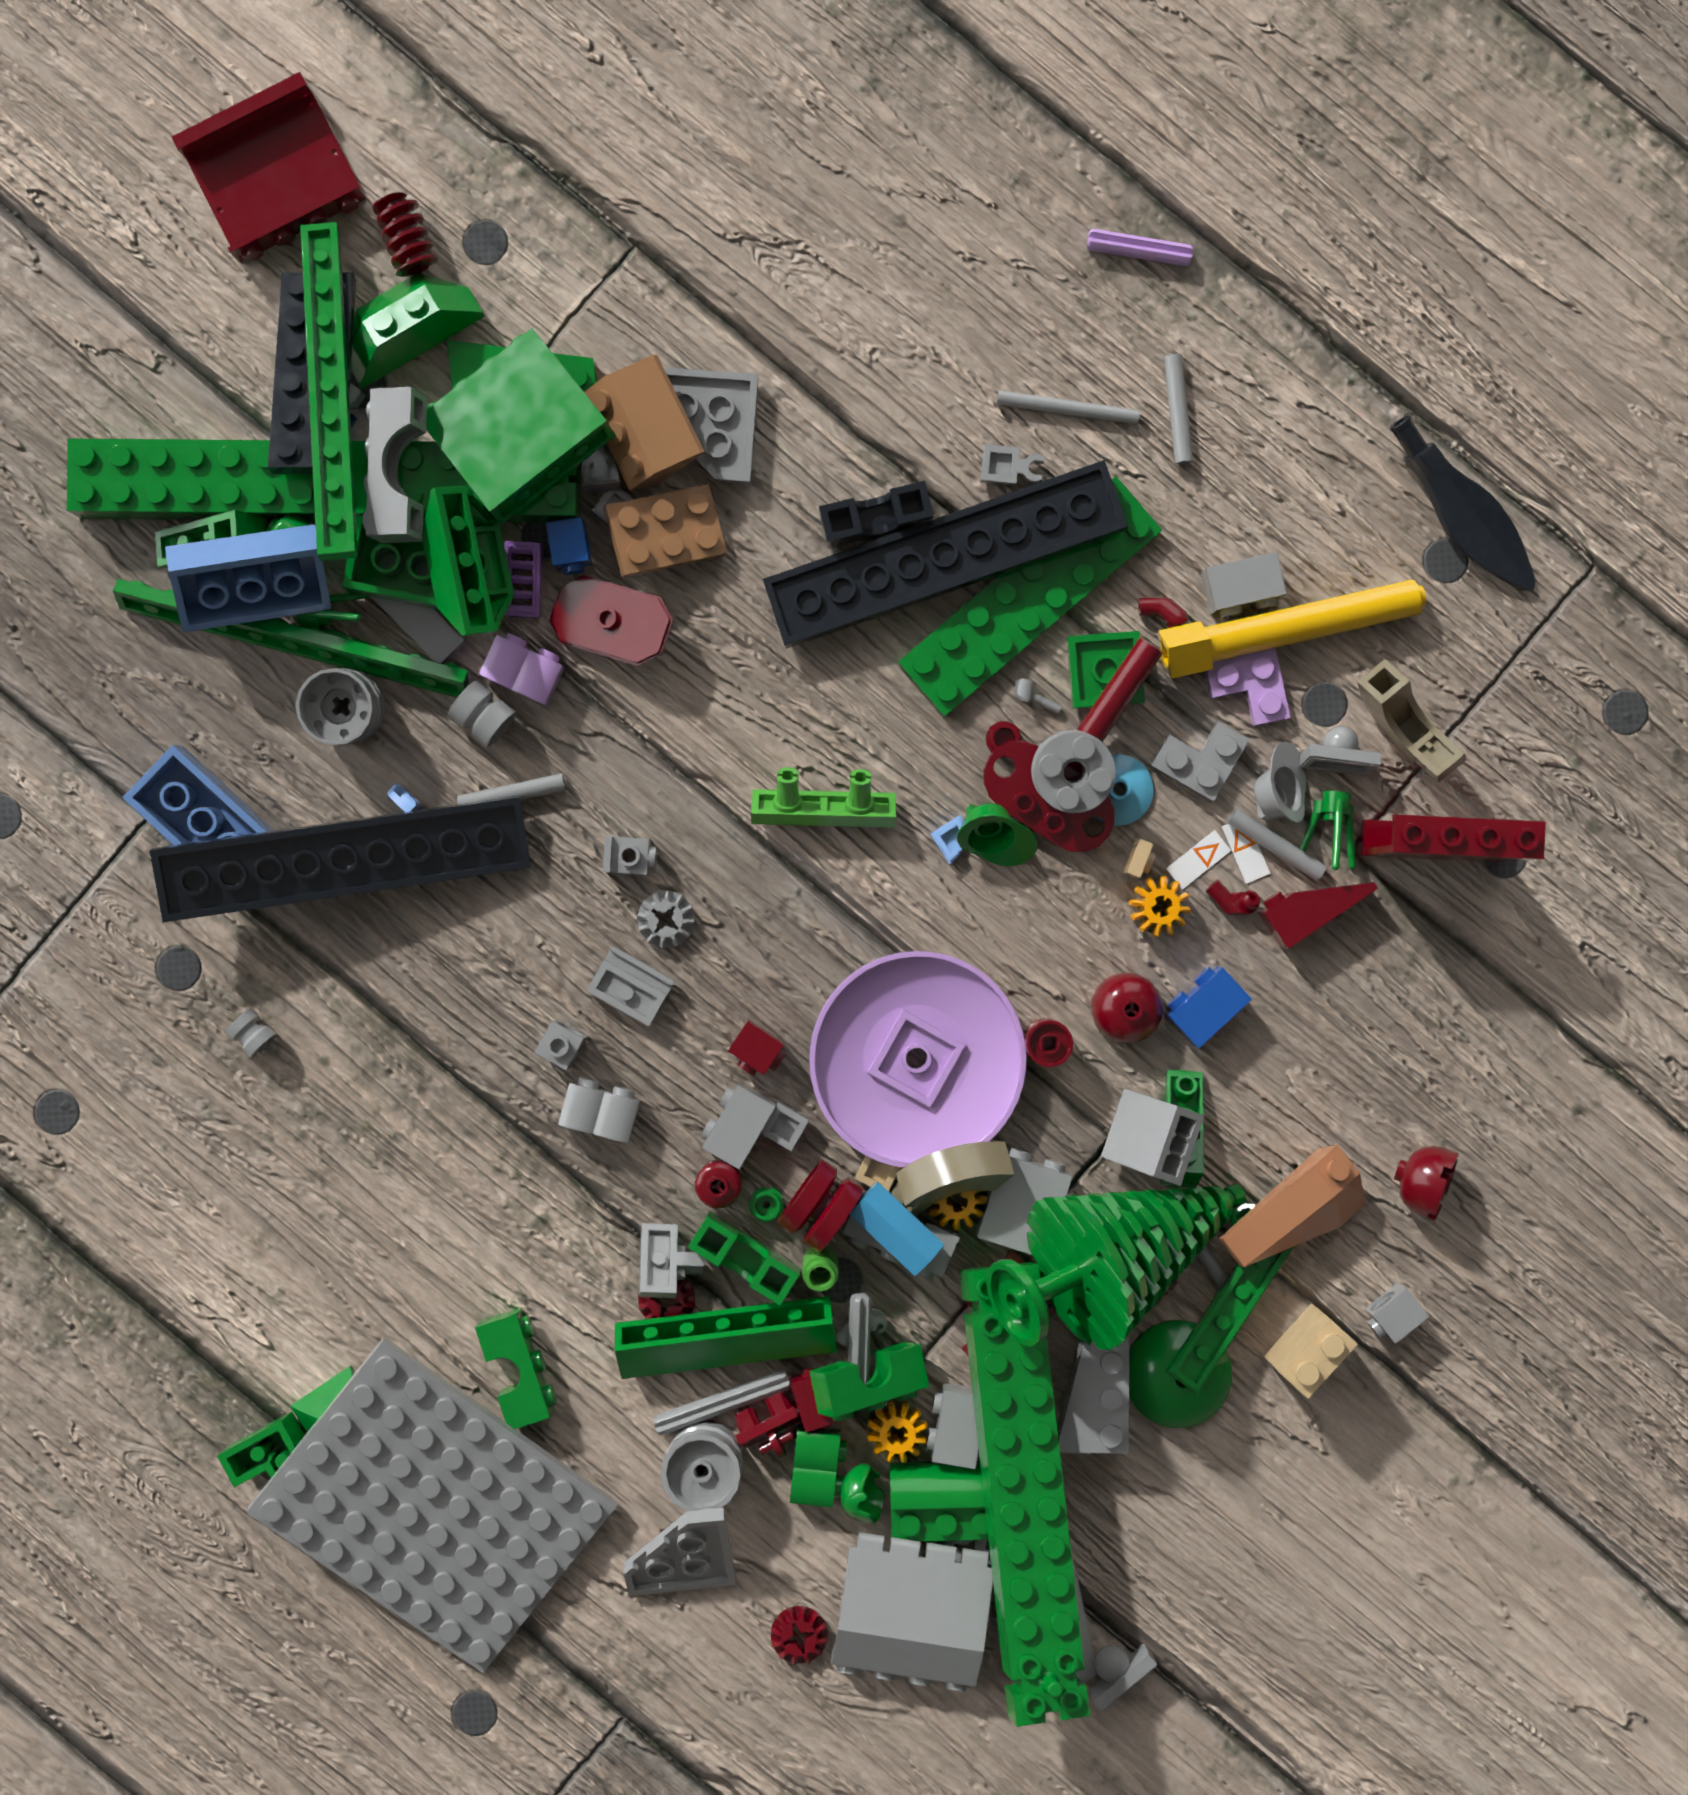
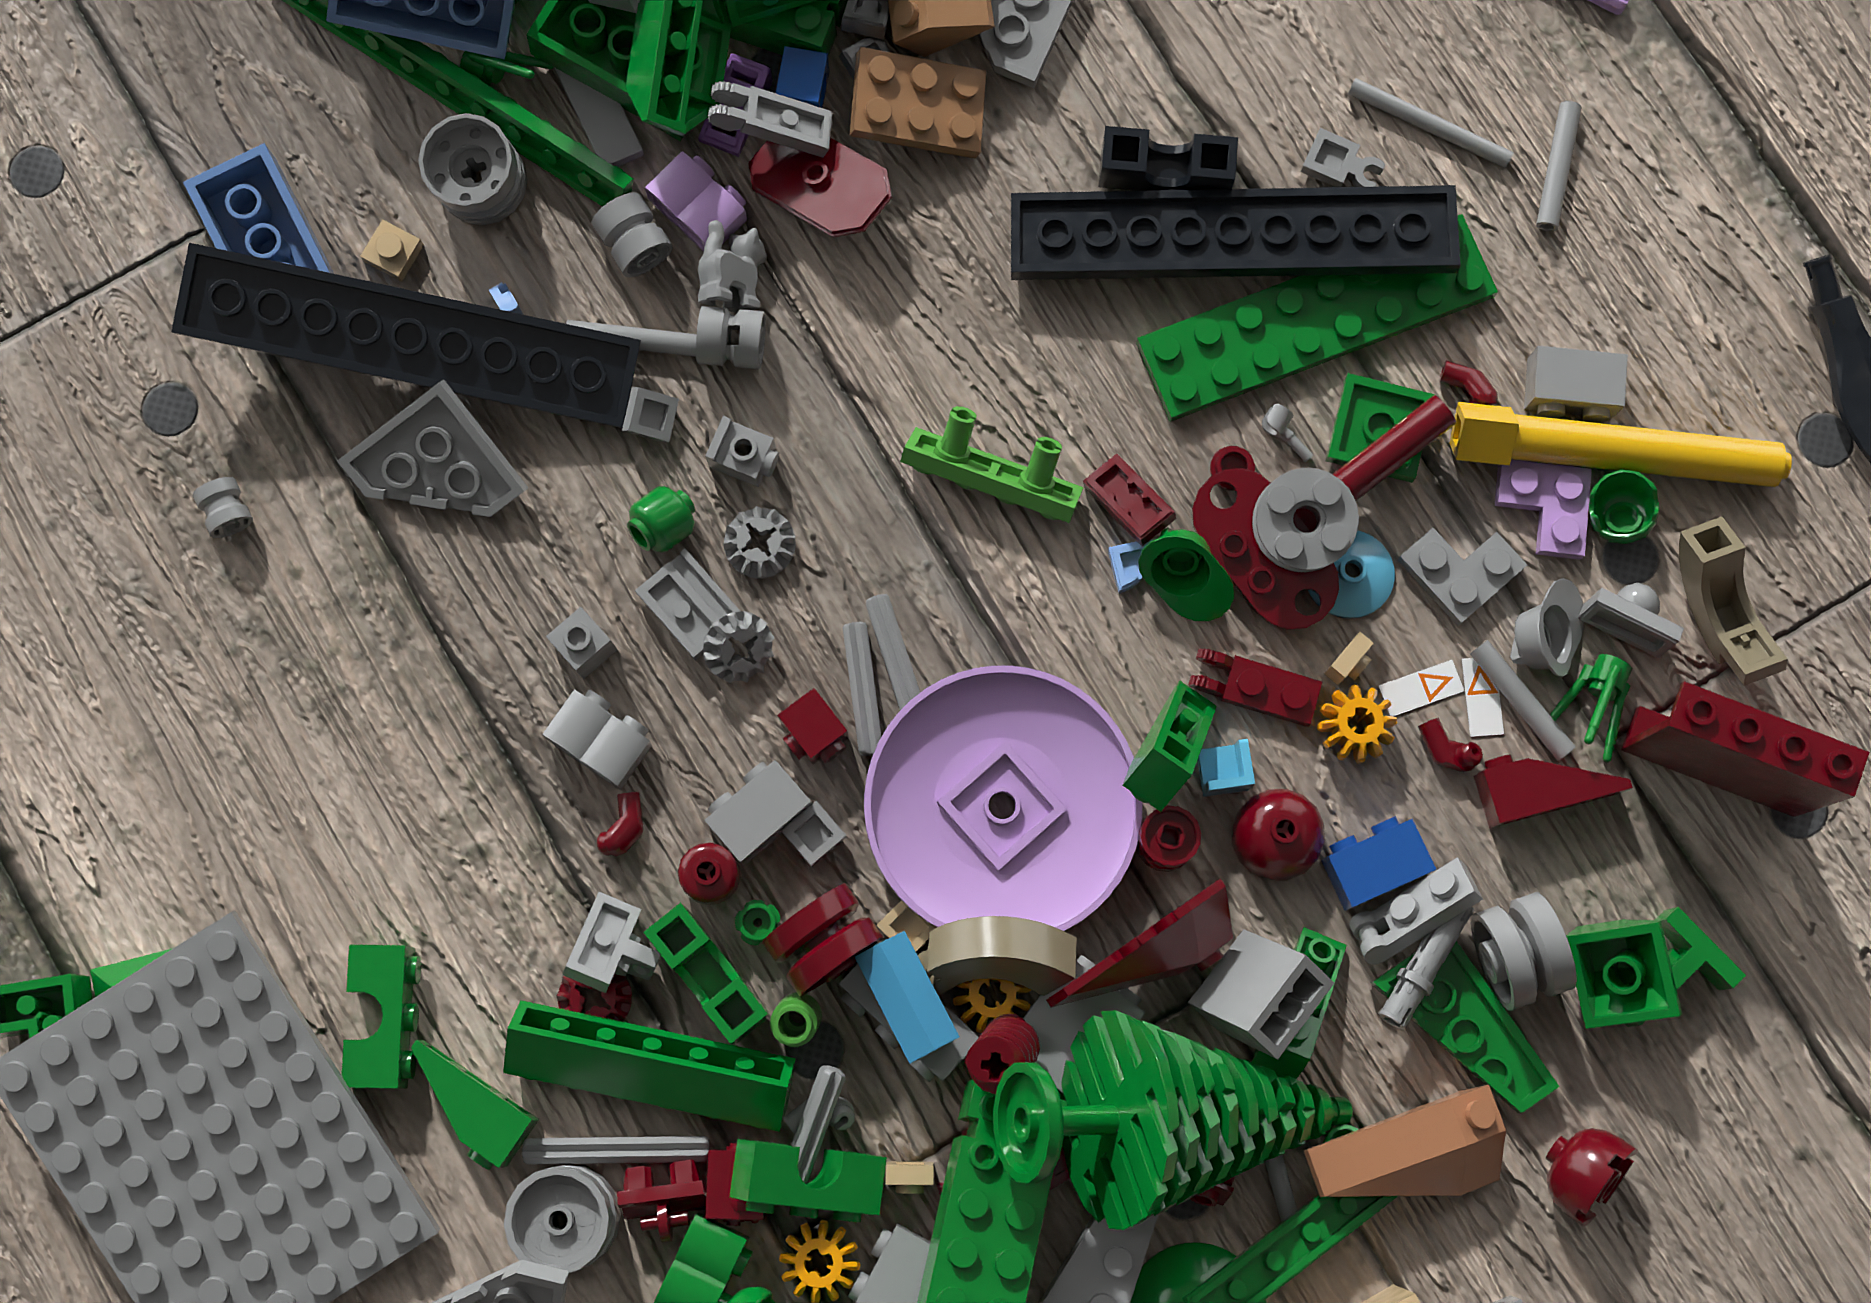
camera: 15 degrees right, 10 degrees down
(300, 786) = (392, 250): none -> tan plate
(397, 942) = (434, 459): none -> light grey plate
(548, 850) = (650, 414): none -> light grey plate
(559, 587) = (771, 117): none -> light grey hinge
(570, 722) = (733, 273): none -> light grey animal
(575, 771) = (715, 334): none -> light grey wheel
(586, 929) = (661, 519): none -> green head
(612, 1410) = (477, 1111): none -> green slope
(645, 1169) = (626, 829): none -> dark red arm
(678, 992) = (741, 627): none -> light grey gear
(782, 1003) = (862, 687): none -> light grey axle
(796, 968) = (892, 648): none -> light grey axle
(934, 792) = (1129, 499): none -> dark red plate
(940, 1348) = (909, 1176): none -> tan plate
(979, 1246) = (1000, 1045): none -> dark red piece
(1028, 975) = (1170, 747): none -> green slope
(1072, 973) = (1226, 769): none -> medium azure panel
(1079, 901) = (1260, 687): none -> dark red hinge
(1079, 1115) = (1166, 949): none -> dark red wedge
(1246, 1035) = (1415, 912): none -> light grey plate
(1267, 1062) = (1417, 978): none -> light grey pin
(1300, 1093) = (1477, 1031): none -> green wing
(1309, 671) = (1624, 506): none -> green hair
(1333, 1038) = (1523, 951): none -> light grey wheel
(1409, 1029) = (1623, 972): none -> green slope
(1447, 1010) = (1695, 953): none -> green bracket

